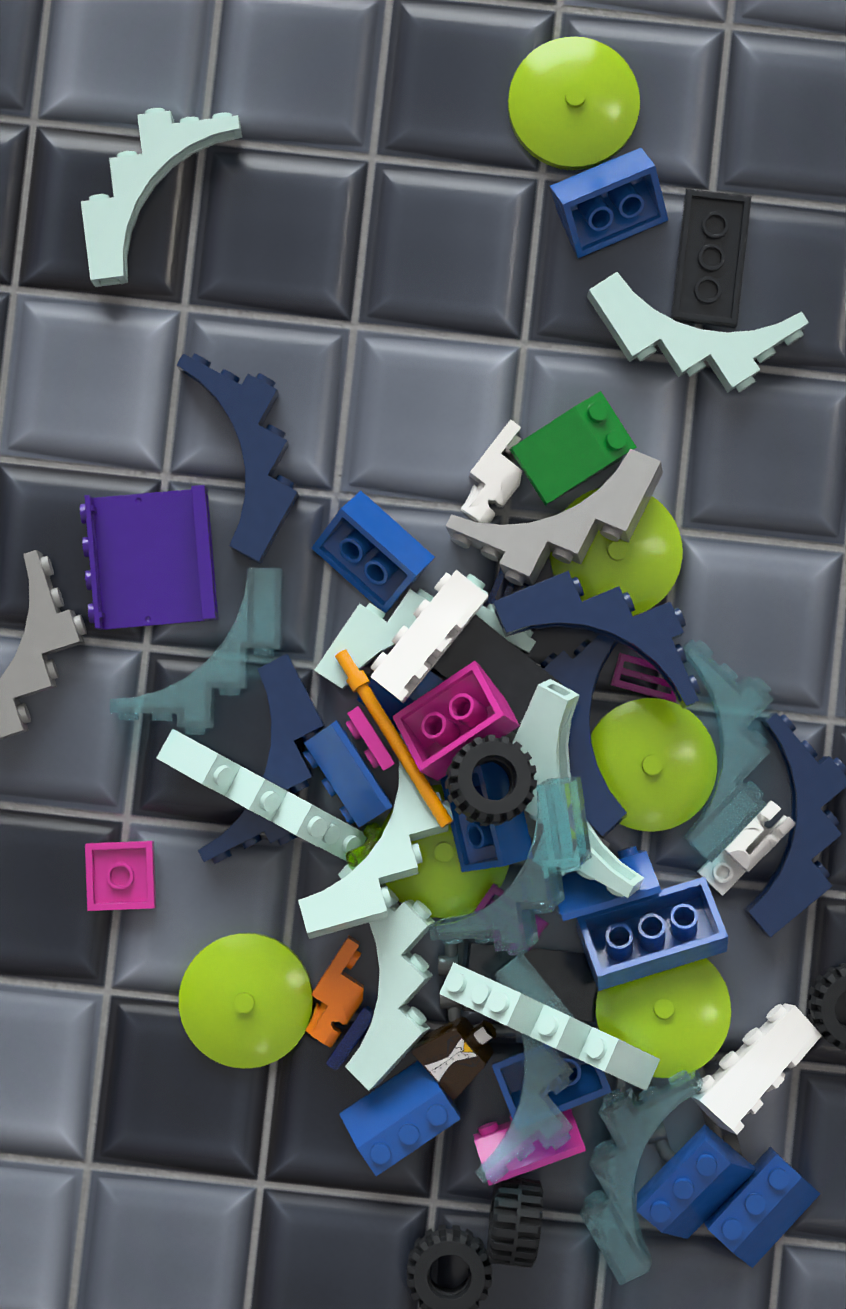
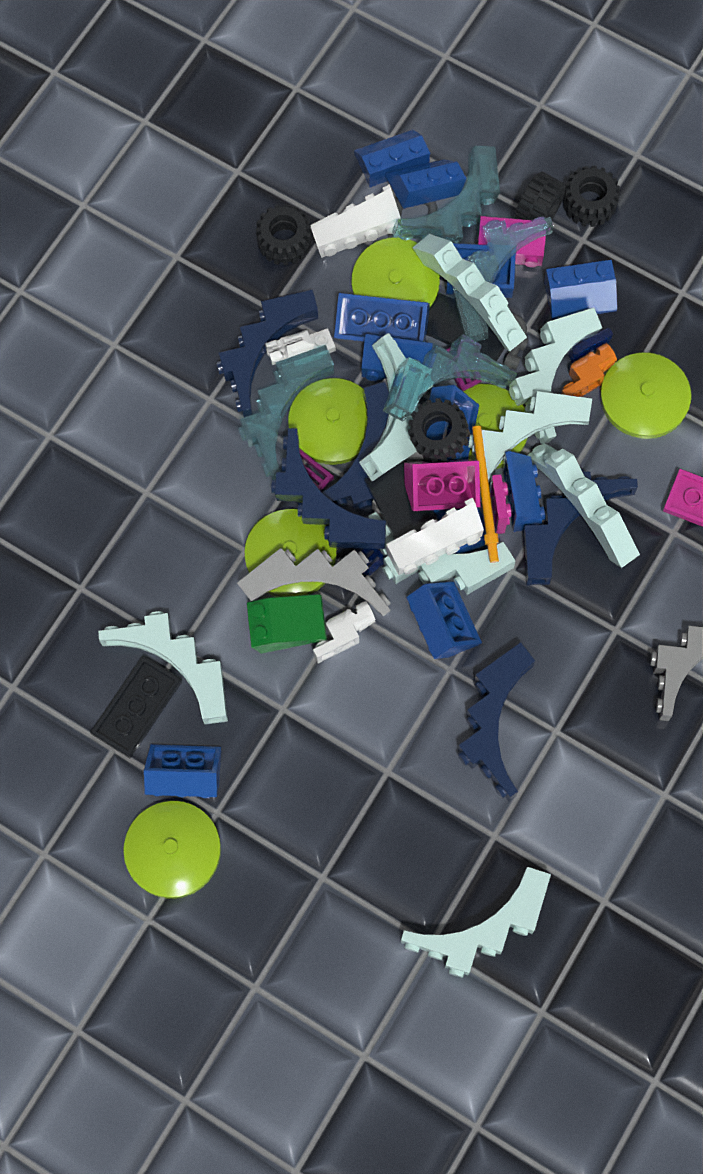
camera: 150 degrees left, 15 degrees down
(149, 559) = (589, 682): dark purple panel -> none
(192, 698) = (573, 589): clear light blue arch -> none
(373, 834) = (530, 443): clear neon green arm -> none
(456, 1053) = (532, 306): dark brown torso -> none

